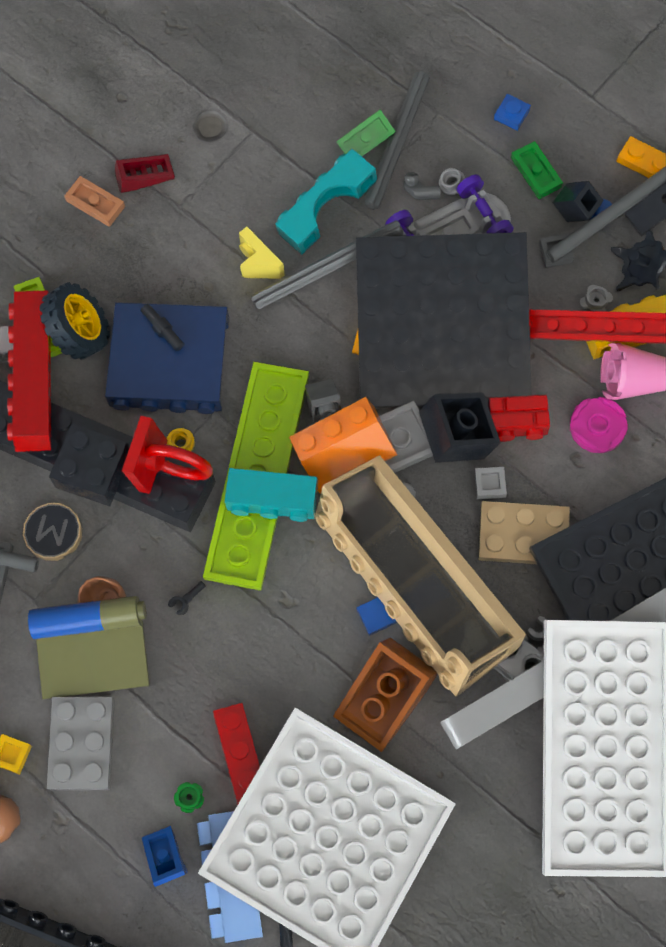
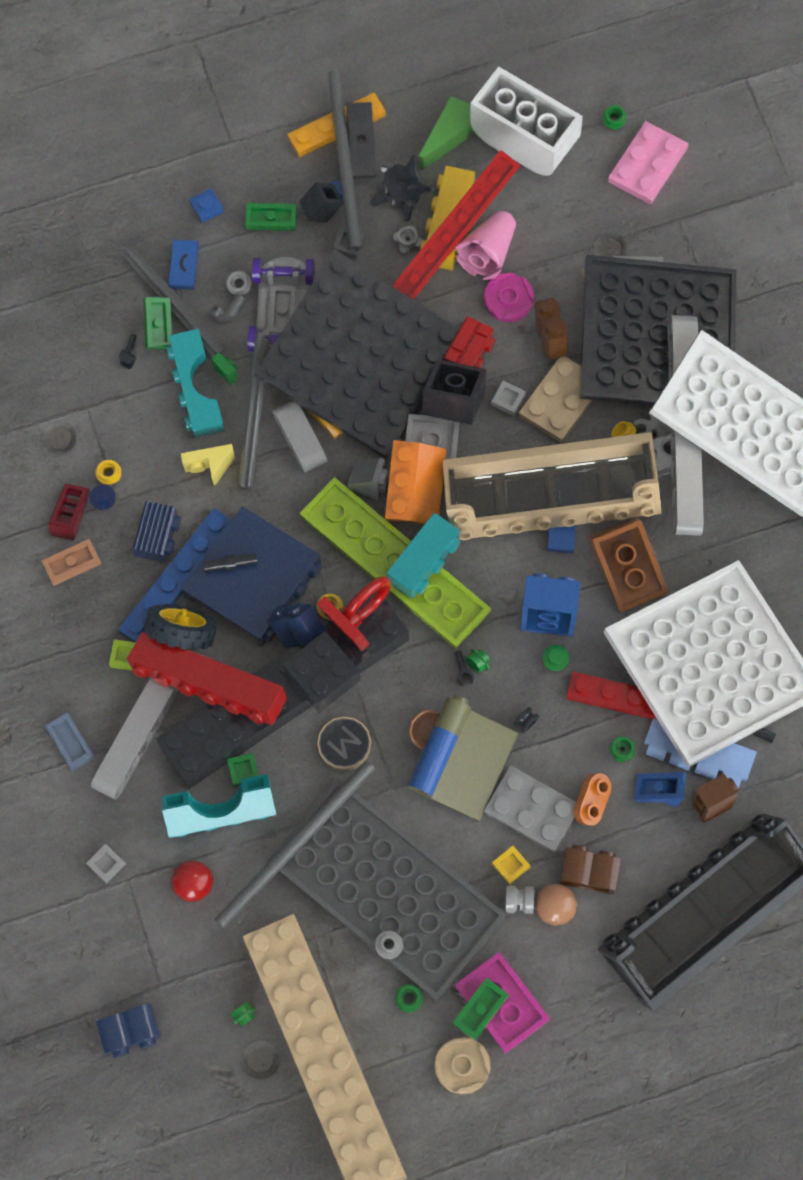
camera: 60 degrees left, 0 degrees up
(44, 834) = (590, 870): none -> reddish brown brick
(117, 795) = (592, 797): none -> orange plate
(122, 291) = (170, 584): none -> blue plate
(129, 408) = (295, 624): none -> dark blue brick
(163, 252) = (156, 532): none -> dark blue brick
(166, 686) = (526, 720): none -> black bush
(172, 191) = (102, 497): none -> clear blue plate
(179, 919) = (714, 797): none -> reddish brown brick
(199, 175) = (107, 465): none -> yellow plate
(202, 606) = (478, 660): none -> green plate
(247, 678) = (555, 658): none -> green plate
(286, 638) = (550, 605): none -> blue brick
(318, 132) = (126, 358): none -> black hand
(331, 319) = (299, 436): none -> light grey beam
(359, 217) = (225, 368): none -> green plate
(440, 127) = (183, 264): none -> blue tile
(523, 612) = (623, 428): none -> yellow plate
(586, 480) = (551, 328): none -> reddish brown brick

